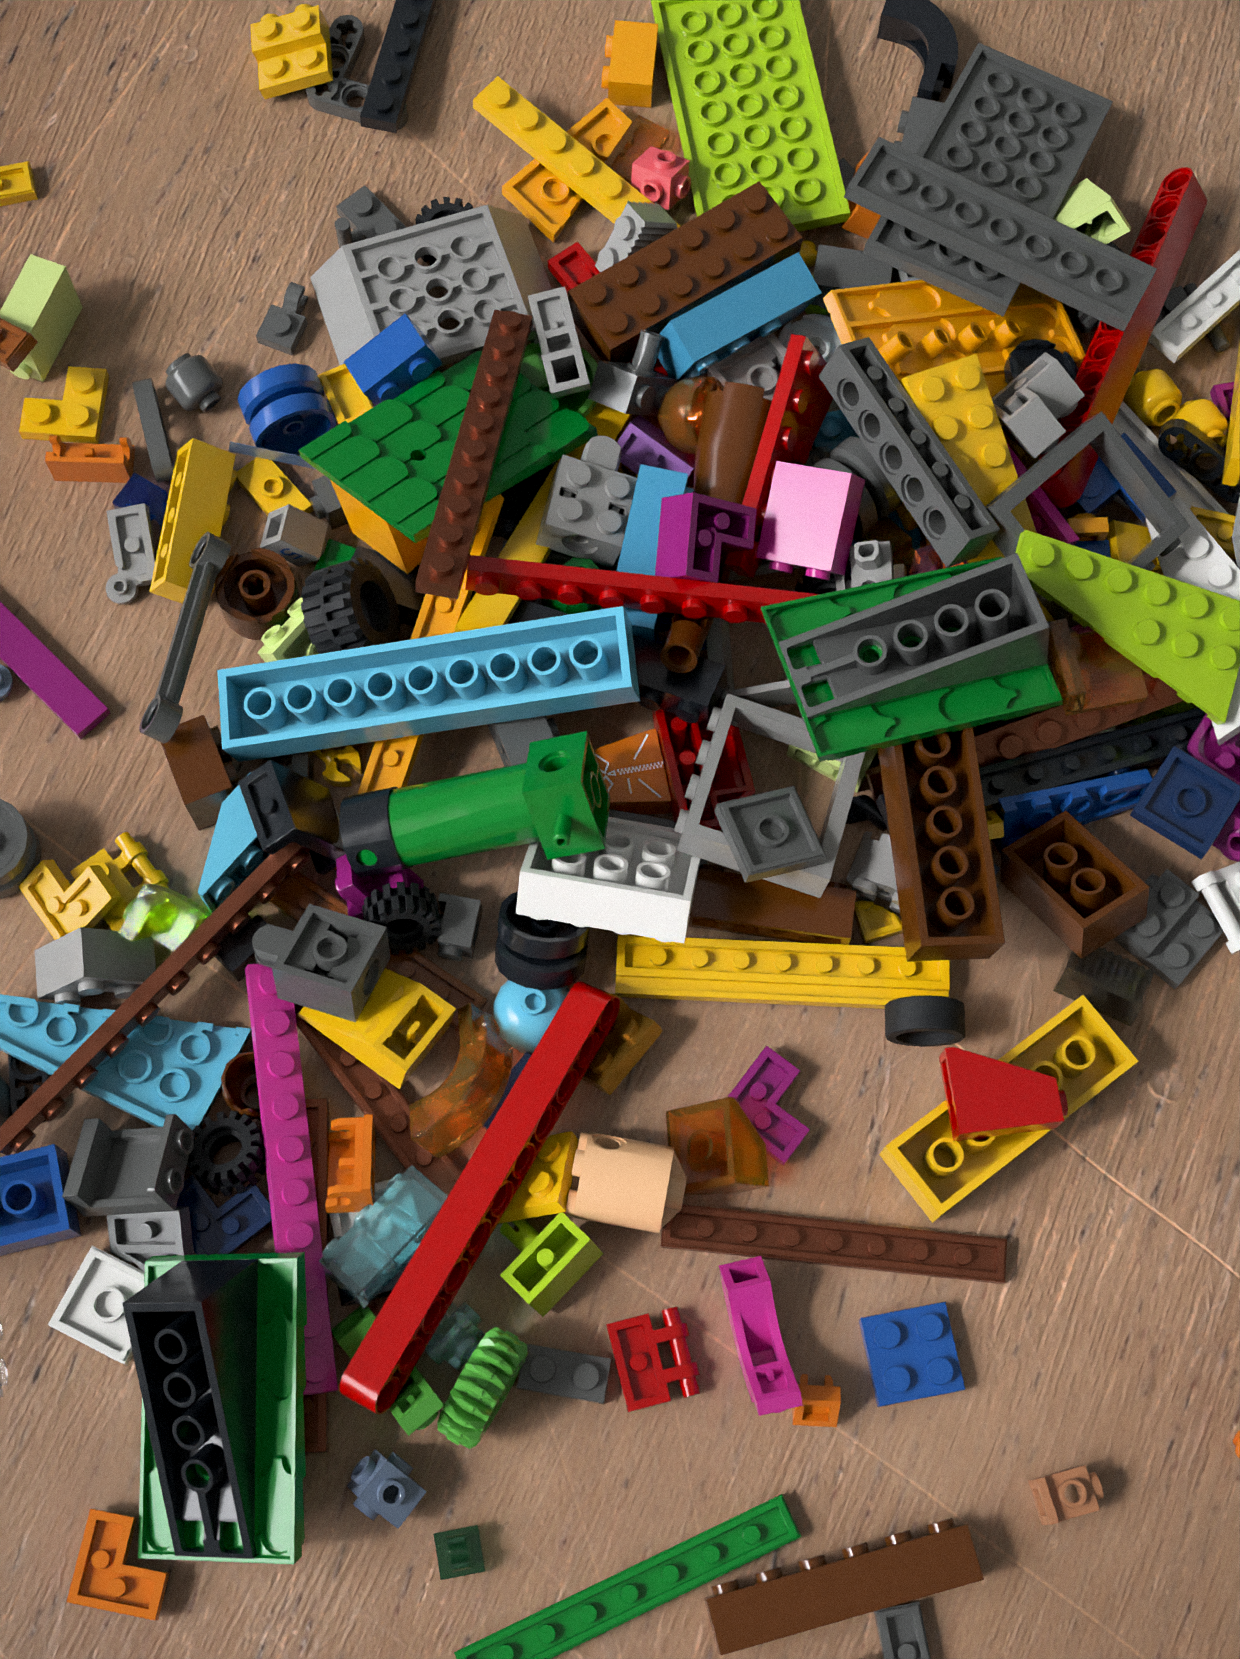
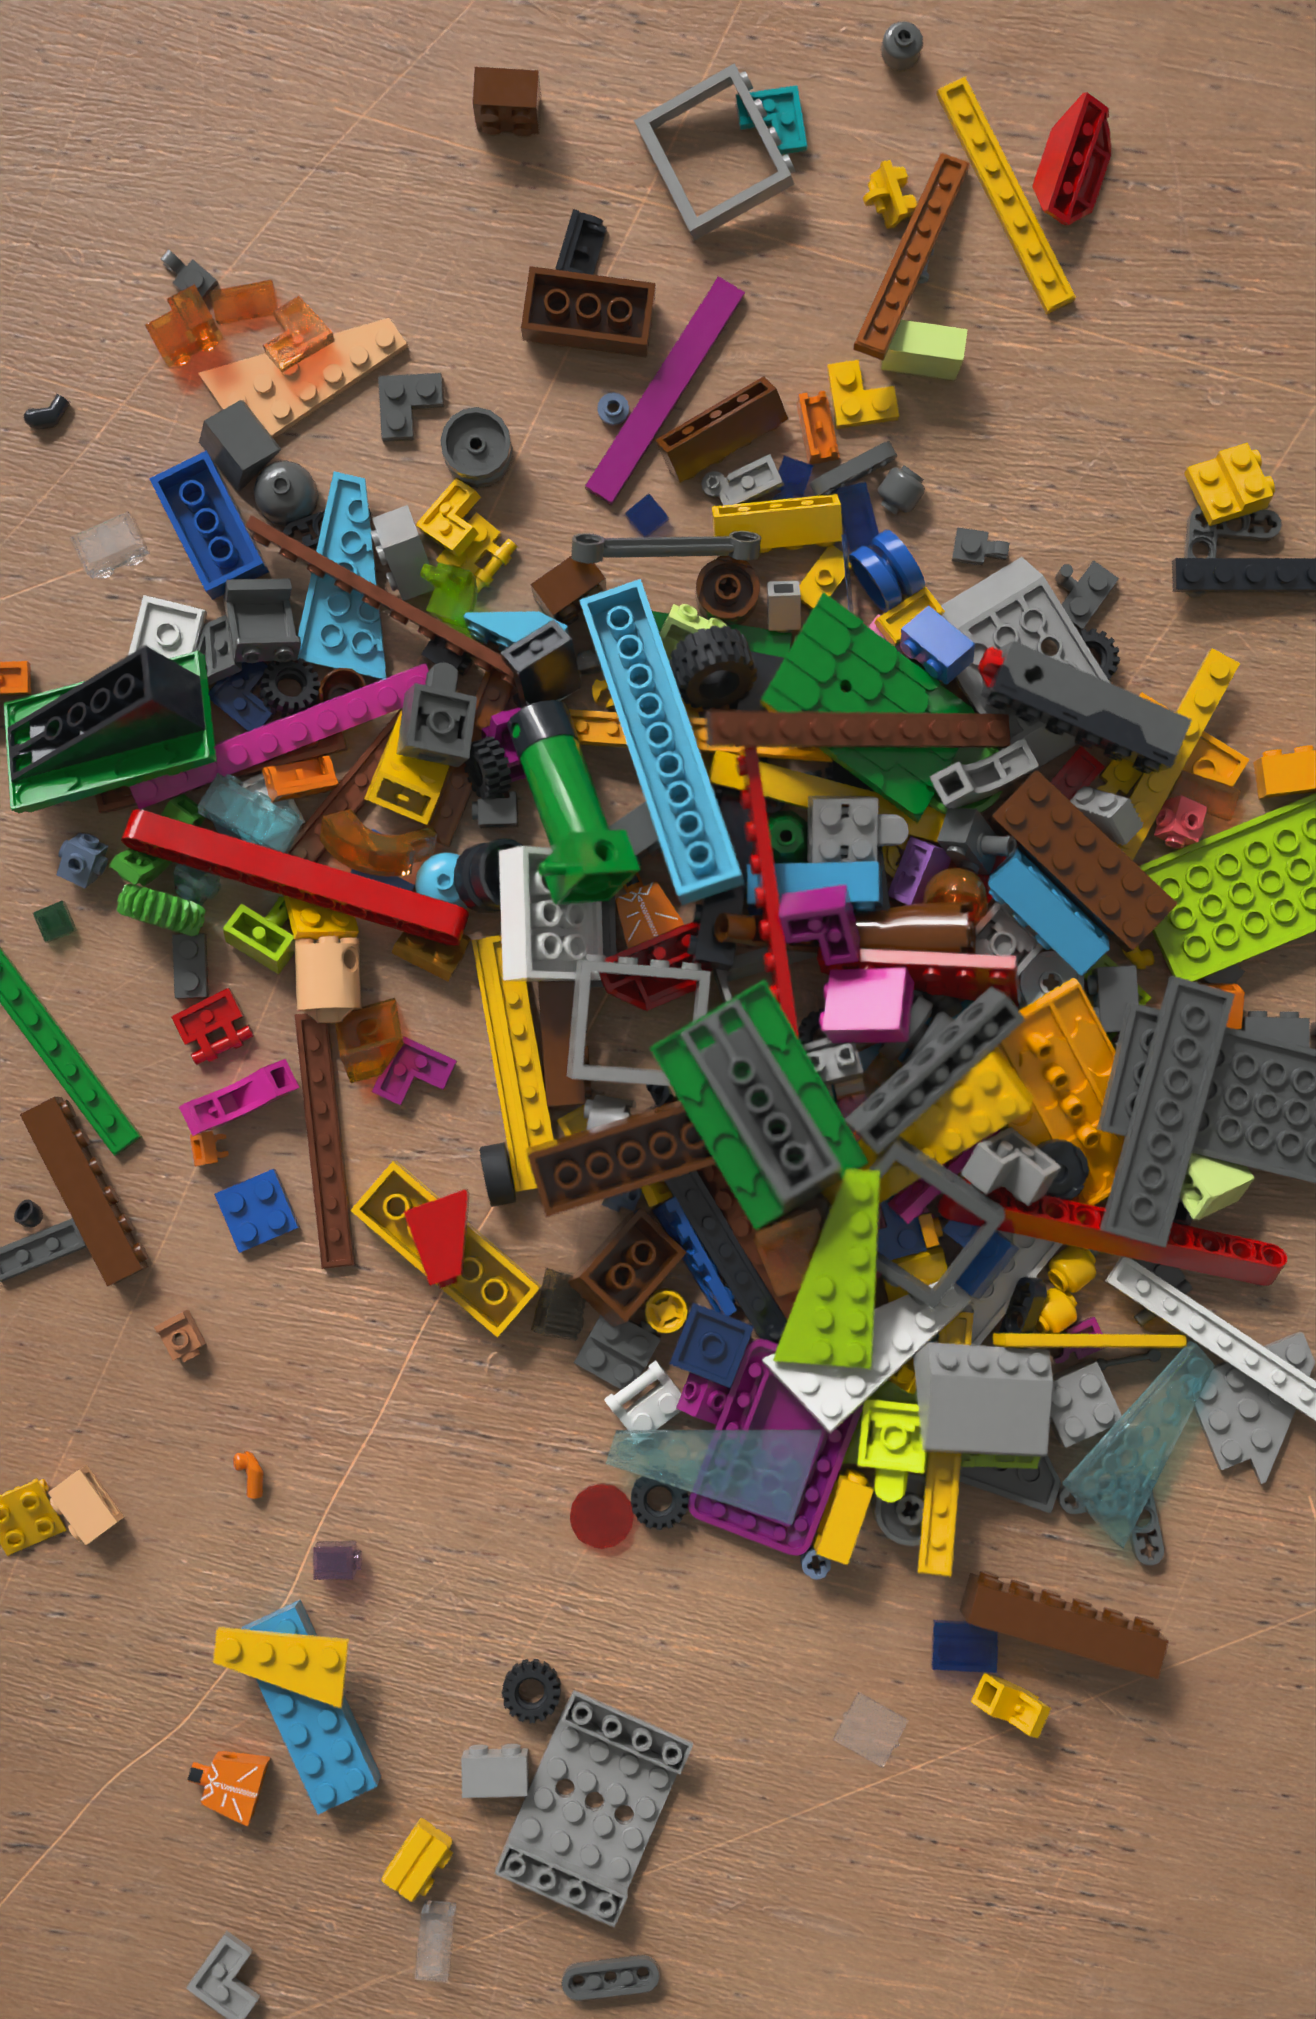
camera: 75 degrees right, 15 degrees up
(59, 559) = (722, 429): none -> reddish brown brick
(136, 673) = (646, 516): none -> clear blue tile
(211, 431) = (857, 515): none -> clear blue plate
(508, 223) = (1082, 707): none -> piece
(588, 229) = (1119, 777): none -> yellow plate
(770, 834) = (595, 1026): dark grey tile -> none
(1138, 848) = (666, 1310): none -> yellow wheel

